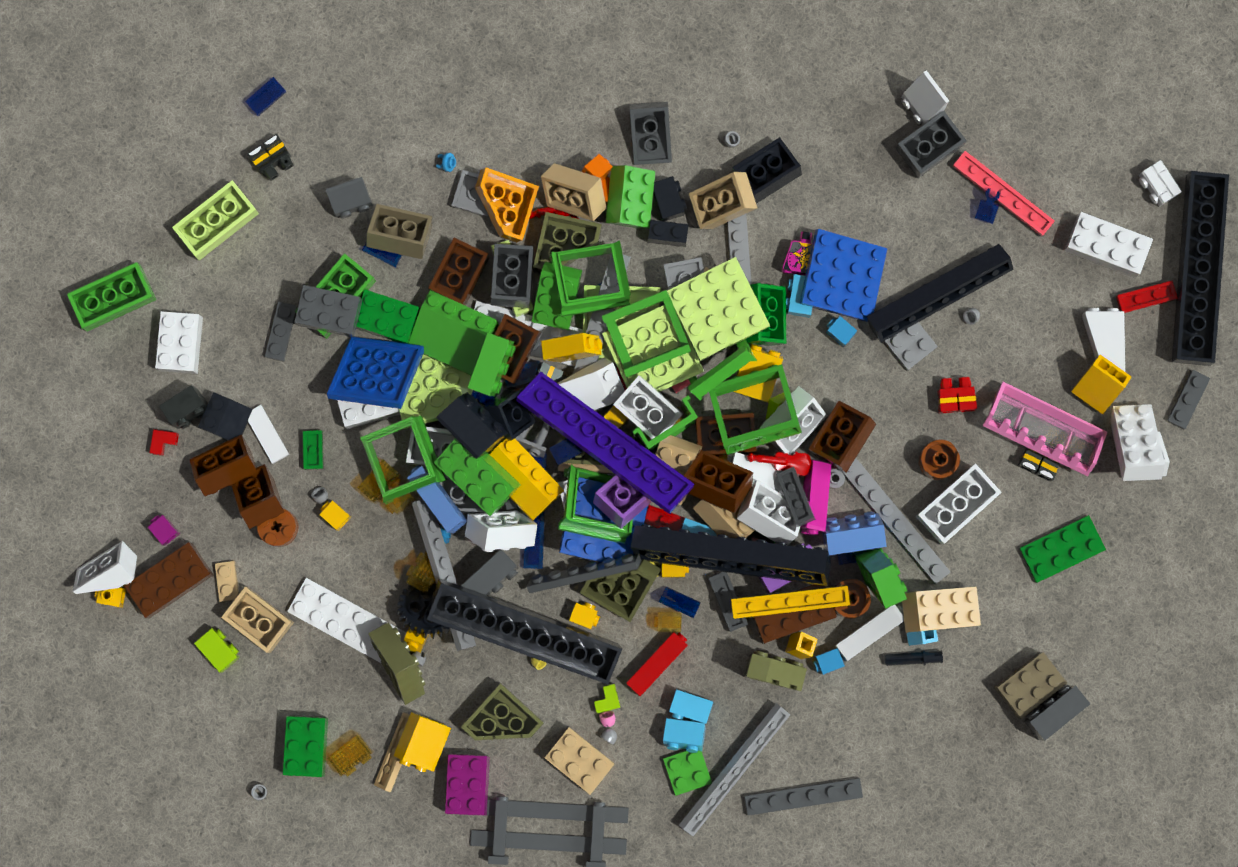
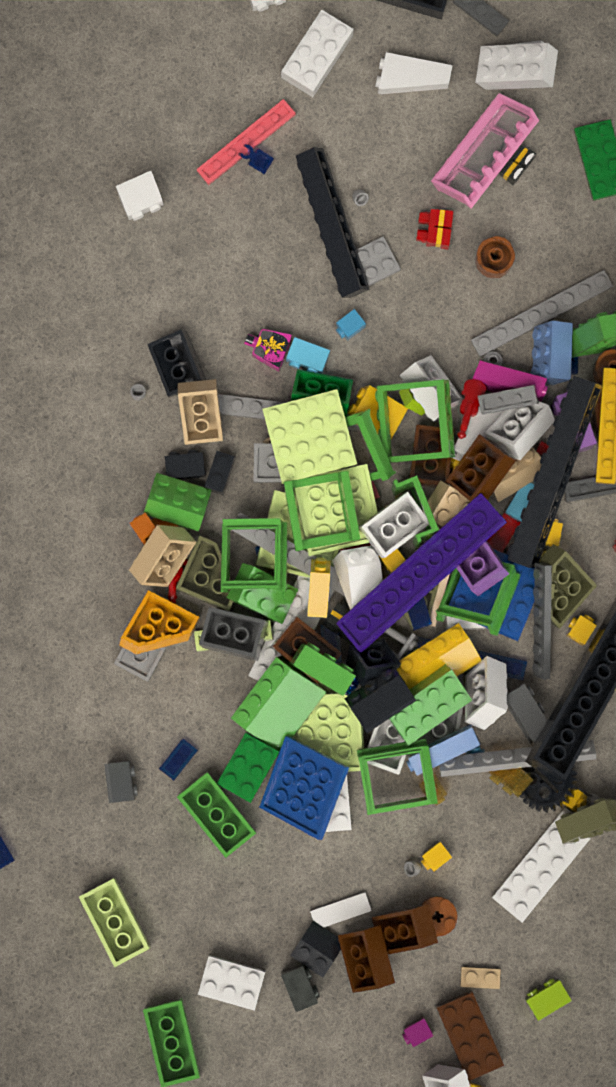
camera: 85 degrees left, 0 degrees up
(161, 438) = (325, 1019): red piece -> none
(257, 620) = (526, 953): tan brick -> none
(265, 163) = (63, 862): pearl dark grey hips -> none
(281, 331) = (239, 877): dark grey plate -> none
(313, 450) = (366, 866): green plate -> none
(328, 311) = (234, 823): dark grey brick -> none
(370, 486) = (413, 815): clear yellow brick -> none
(399, 231) = (164, 738): dark tan brick -> none
(448, 162) = (103, 676): dark azure plate -> none
(459, 271) = (217, 686): reddish brown brick -> none
(650, 133) = (115, 470): dark grey slope -> none
(668, 622) = (602, 549): clear yellow brick -> none
(679, 602) = (585, 534): clear blue plate -> none
(842, 436) = (455, 344): reddish brown brick -> none
(843, 275) = (296, 311): blue plate -> none
(931, 144) = (184, 200): dark grey brick -> none
(958, 504) = (541, 248): white brick -> none
(1101, 384) = (453, 88): yellow brick -> none
(1147, 297) = (374, 28): red plate -> none

